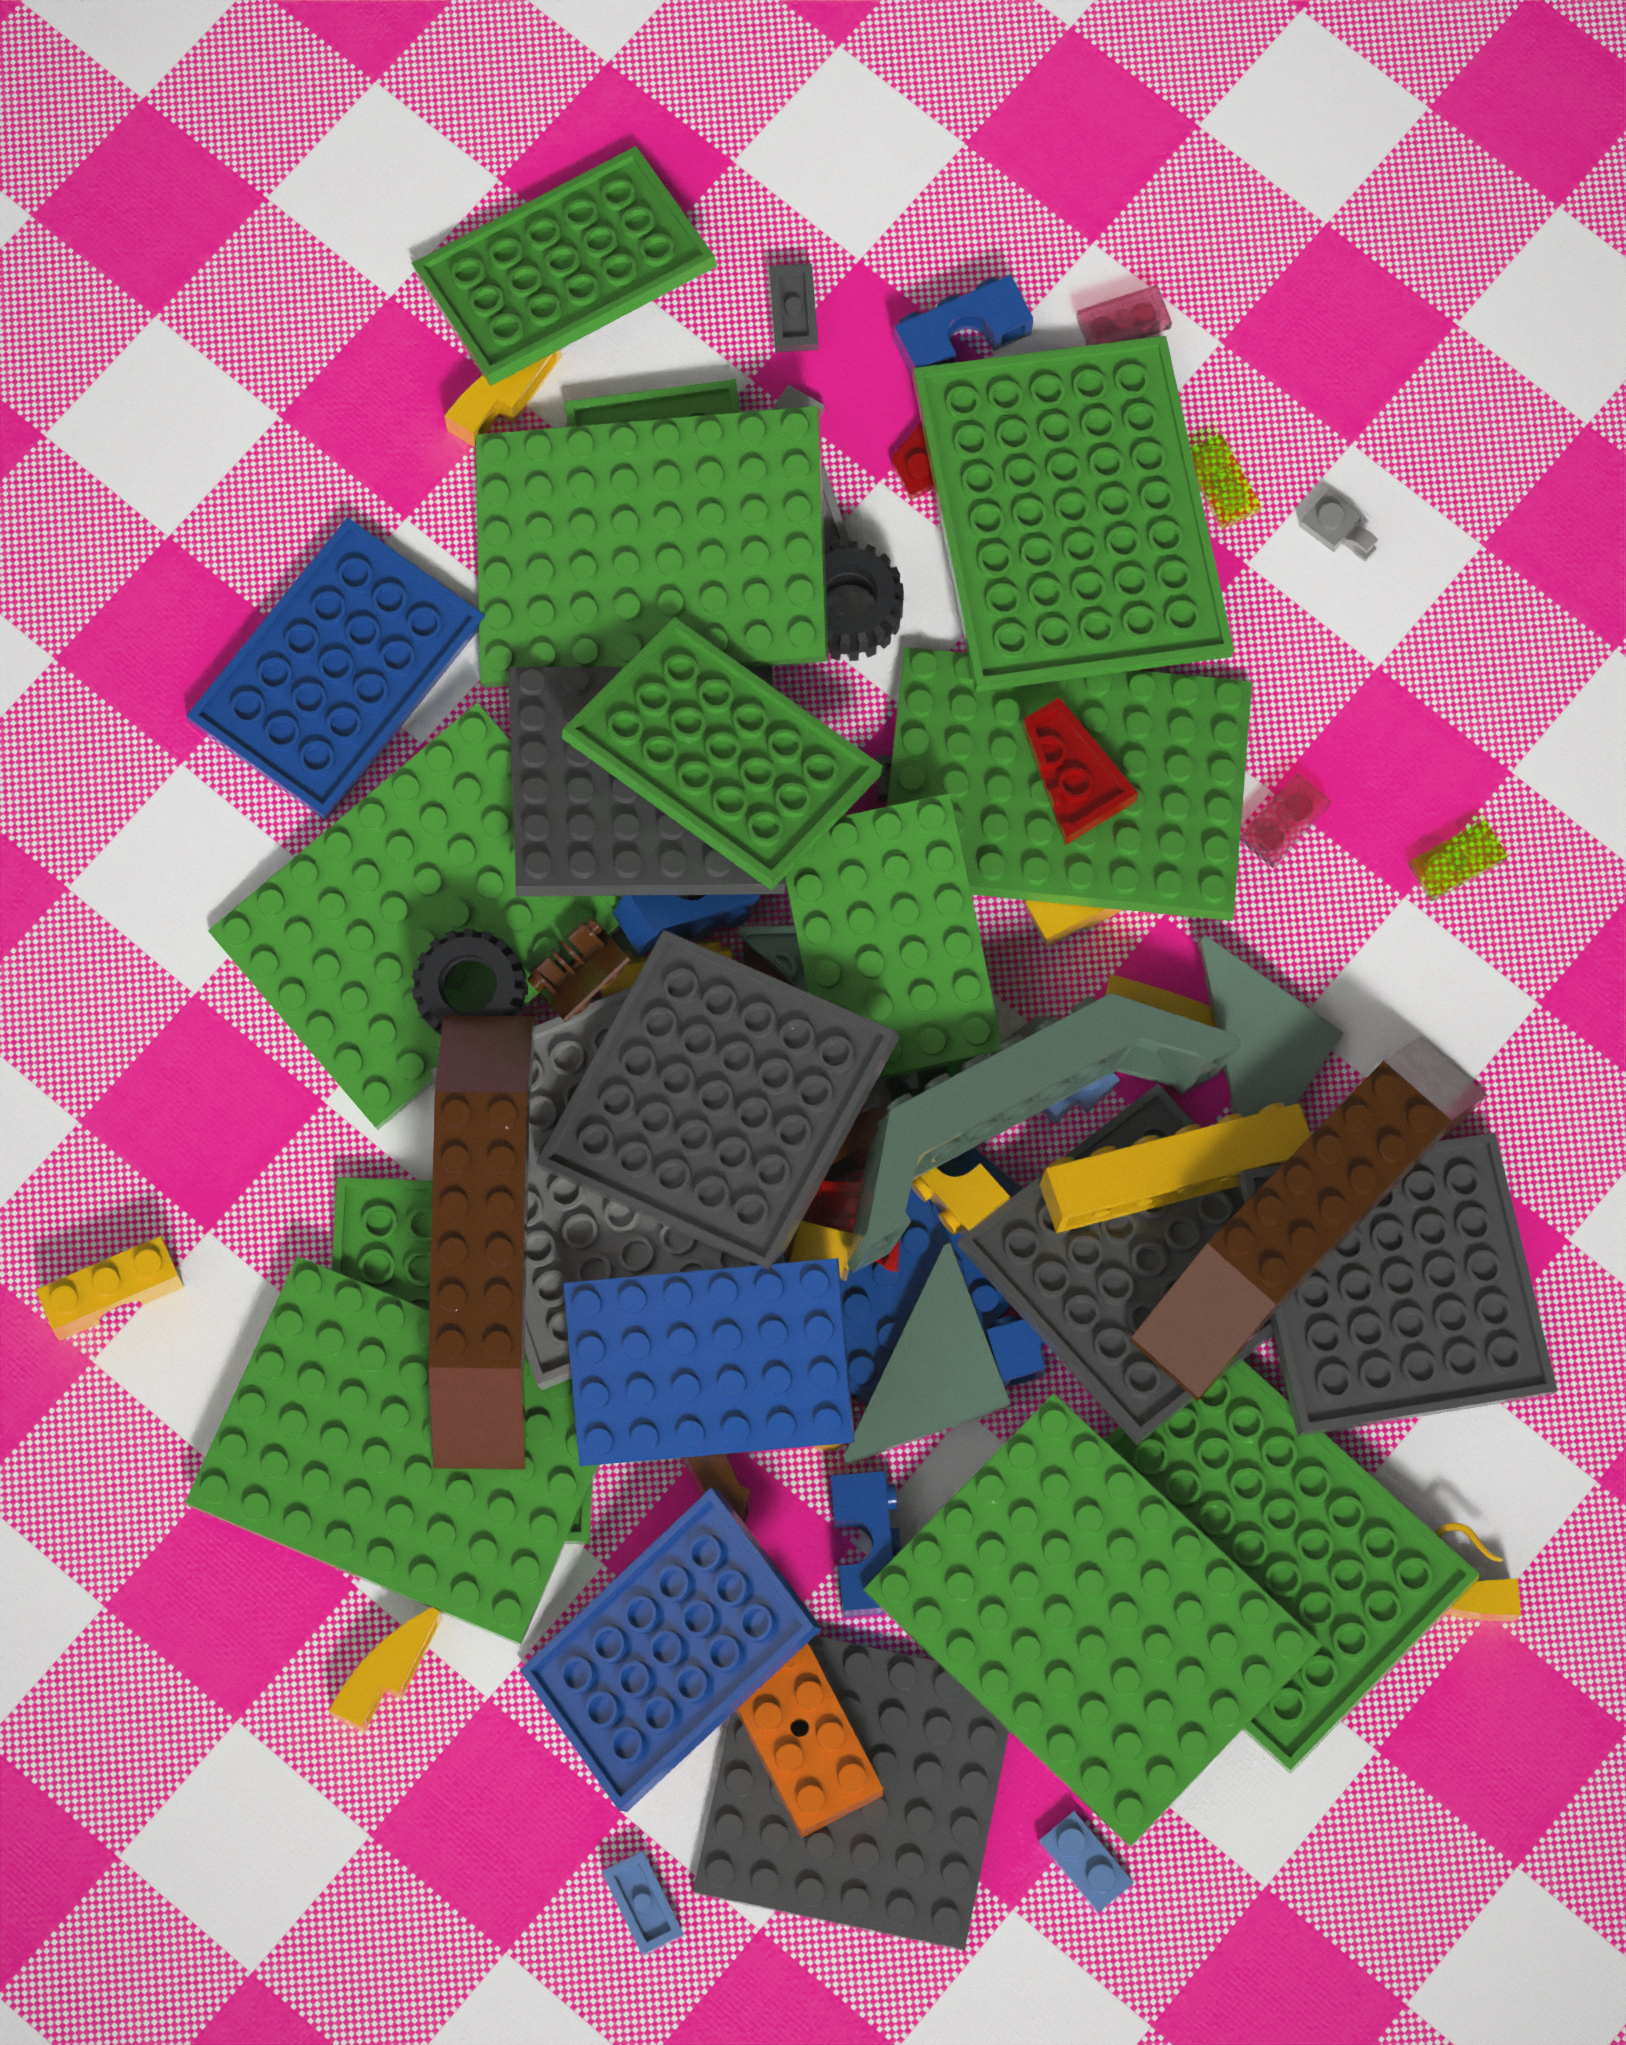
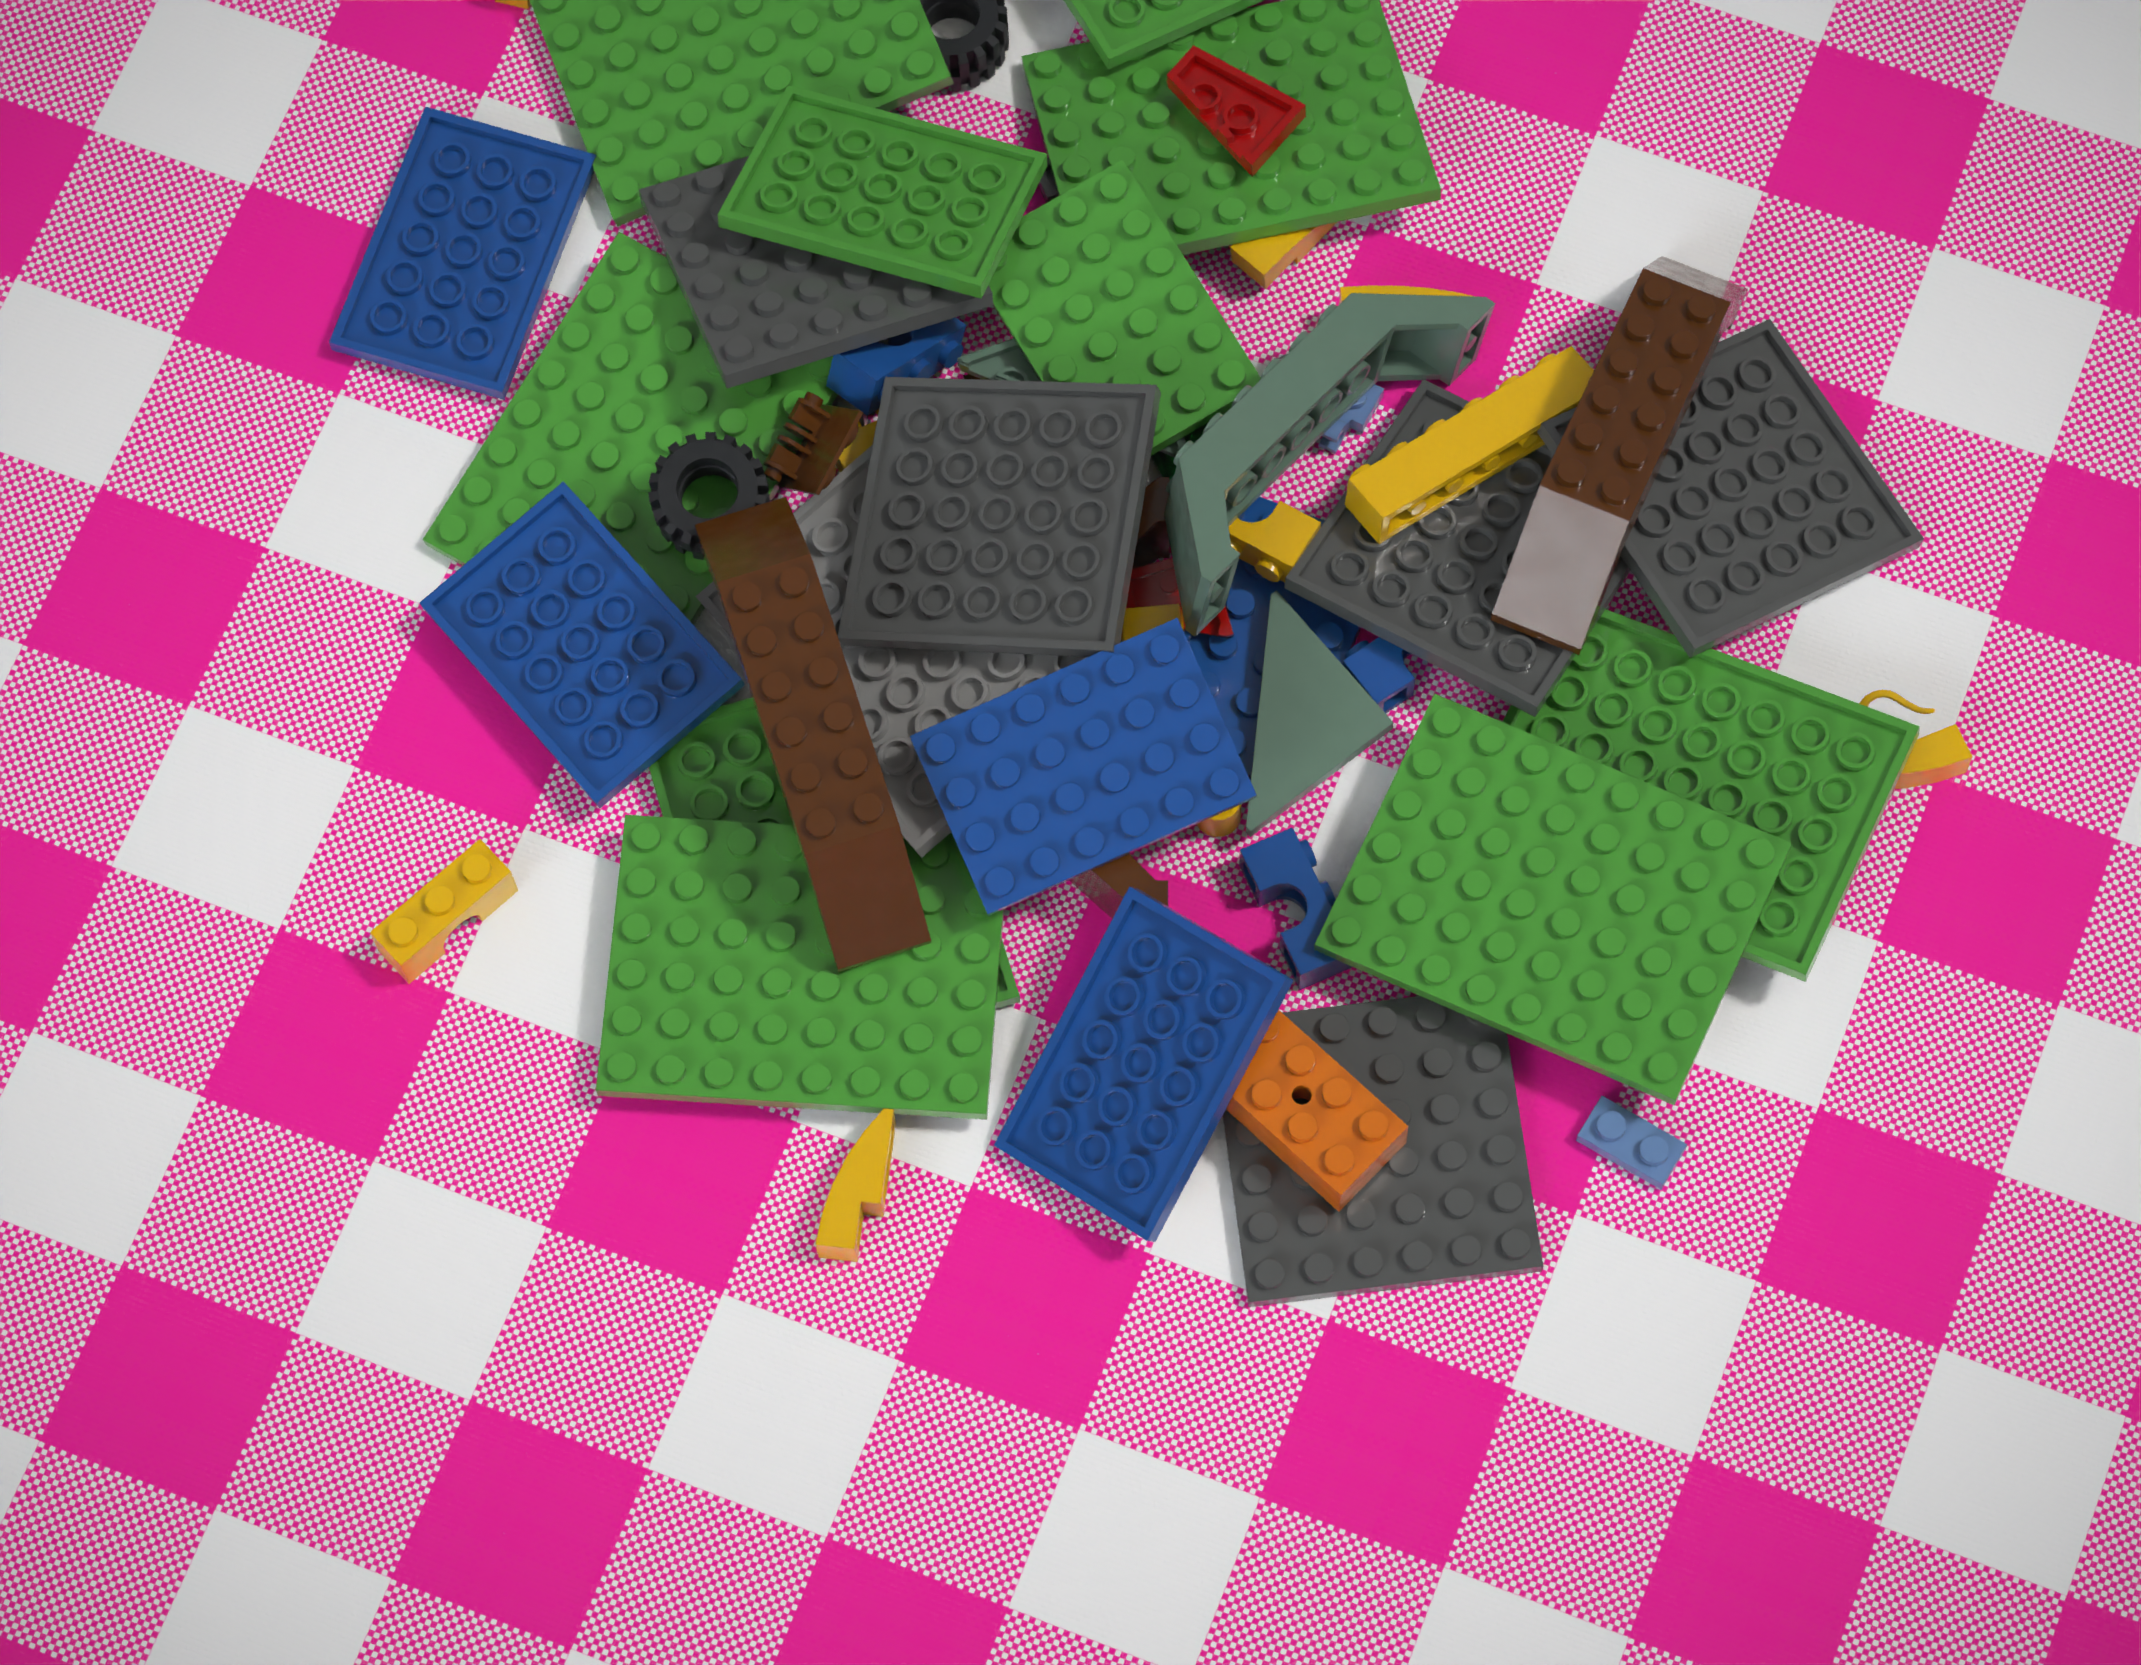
camera: 15 degrees left, 5 degrees down
(312, 1082) = (582, 644): none -> blue plate
(642, 1903) = (1202, 1331): medium blue plate -> none
(1277, 1033) = (1531, 297): sand green tile -> none
(1285, 820) = (1454, 97): clear pink plate -> none
(1458, 860) = (1635, 84): clear neon green plate -> none

